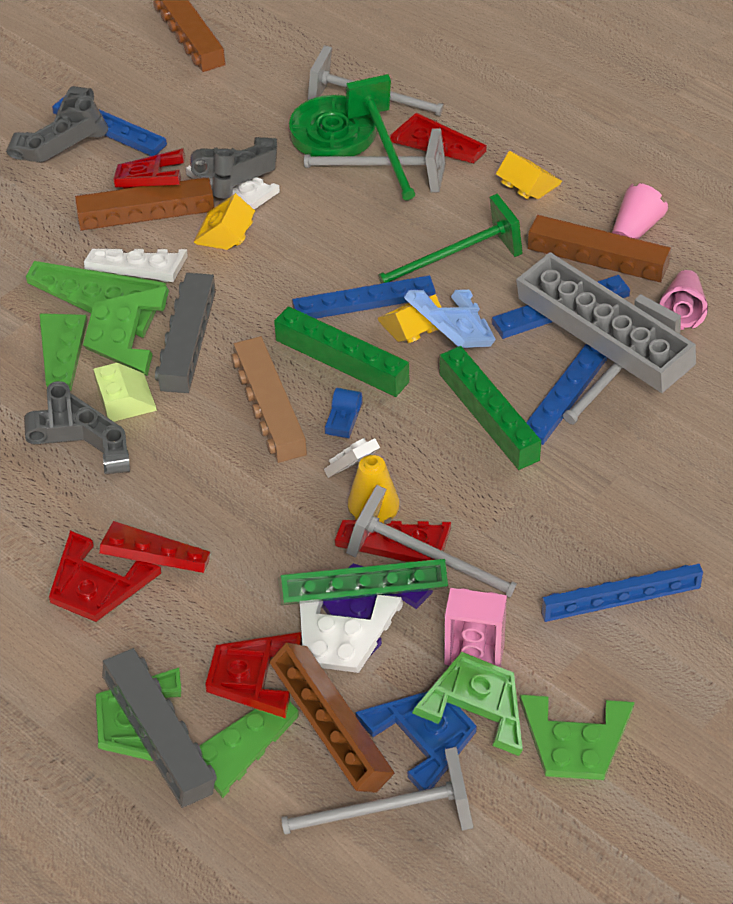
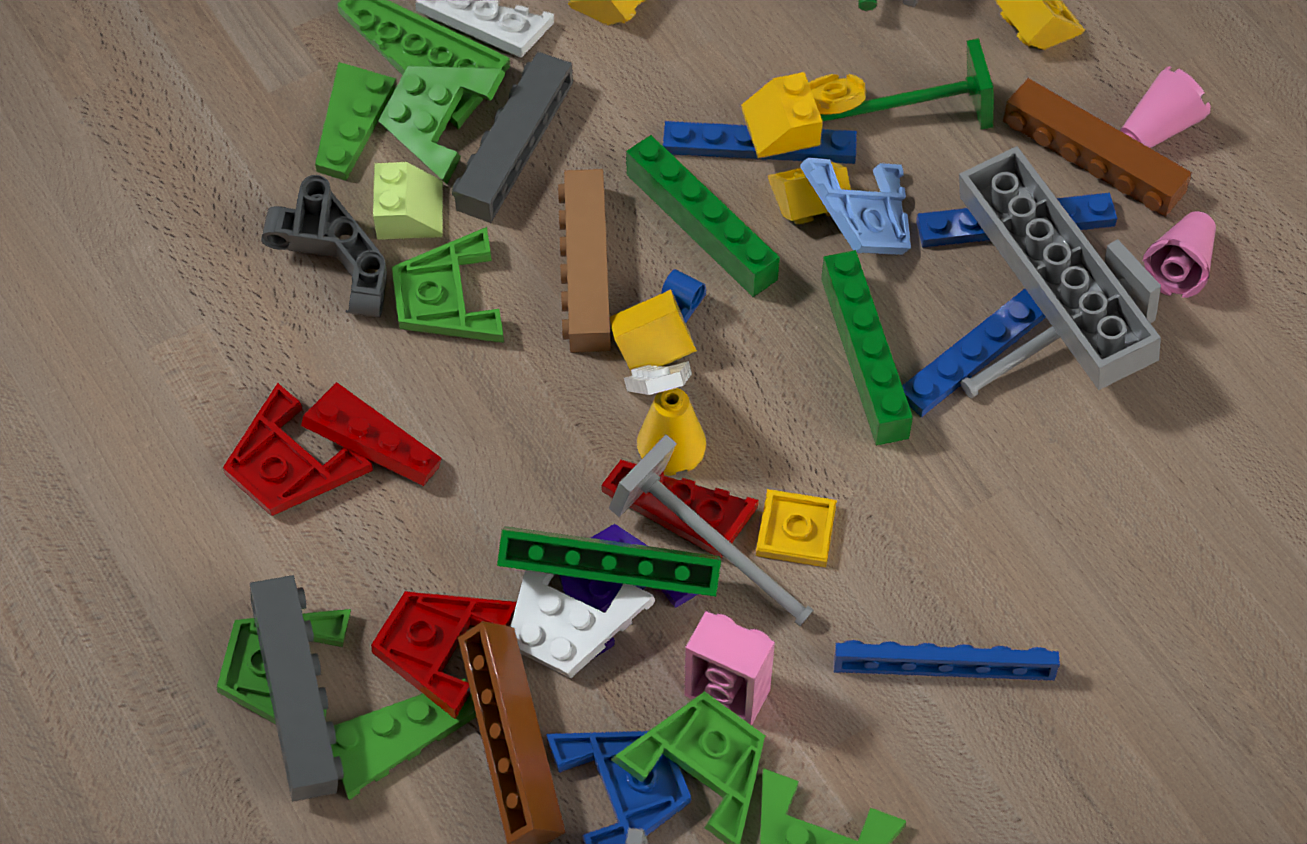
camera: 15 degrees right, 10 degrees up
(164, 447) = (432, 293): none -> bright green wing
(334, 431) = (652, 332): none -> yellow slope
(378, 274) = (783, 116): none -> yellow slope
(406, 256) = (838, 94): none -> yellow tile
(483, 535) = (796, 528): none -> yellow tile

